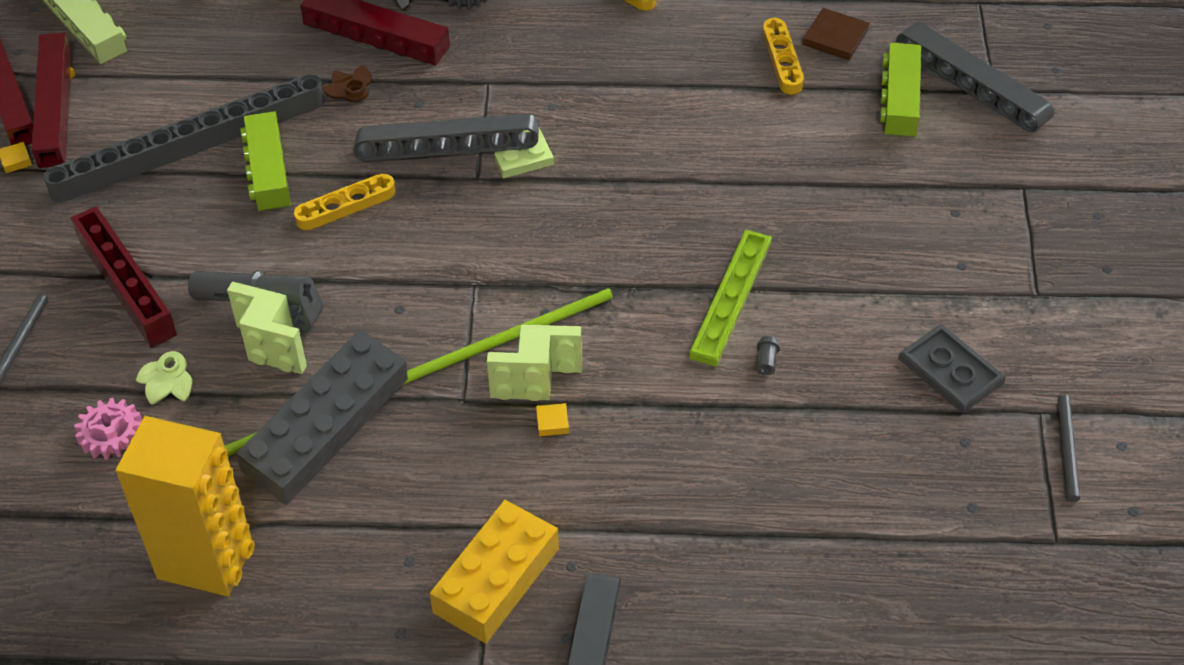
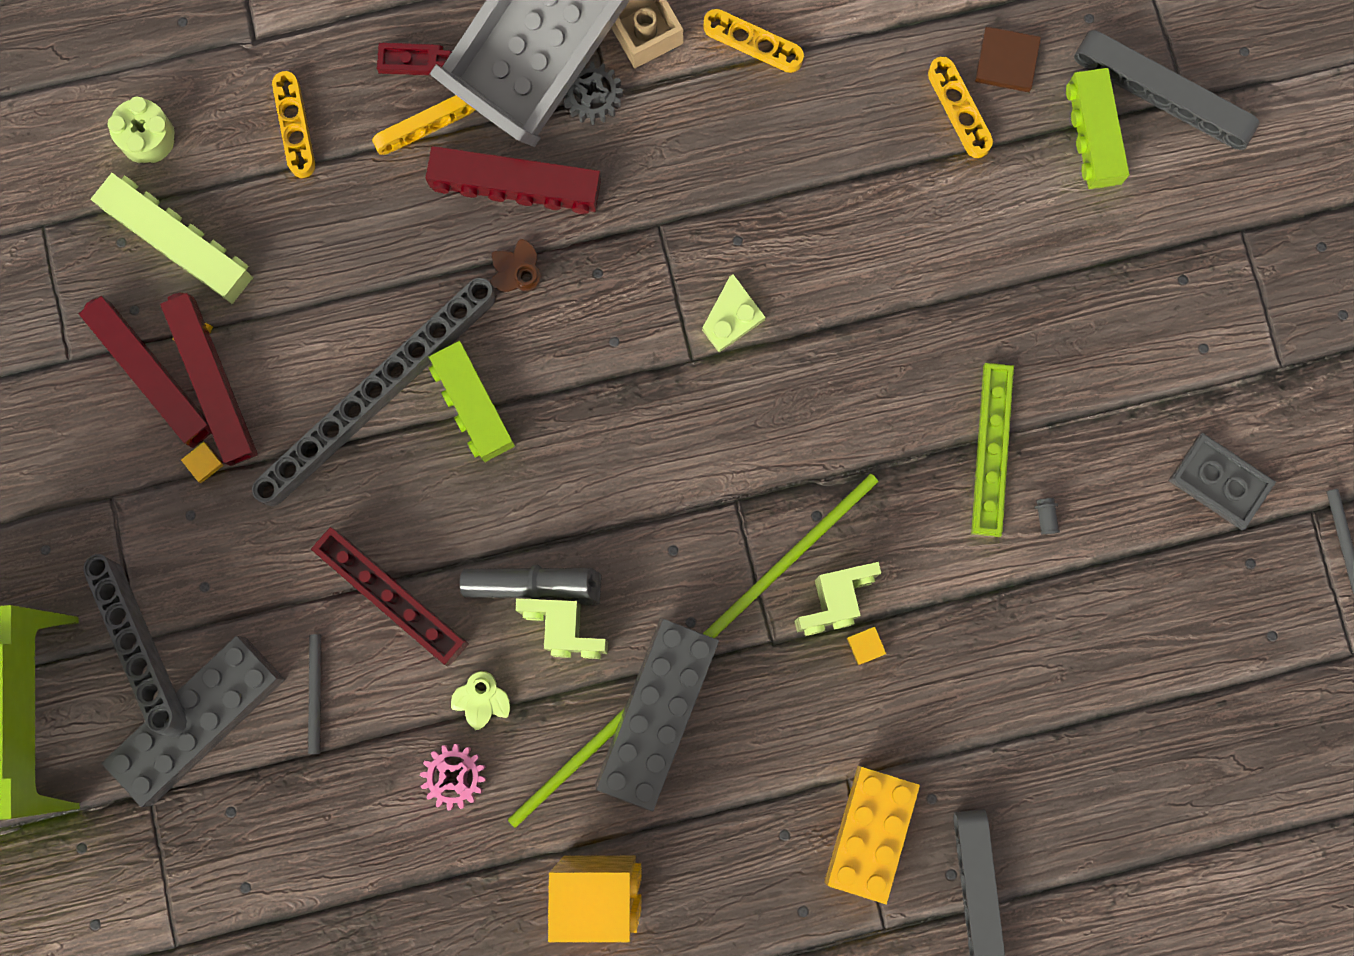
camera: 15 degrees left, 30 degrees up
(343, 198) = (567, 427): yellow beam -> none
(435, 144) = (650, 326): dark grey beam -> none

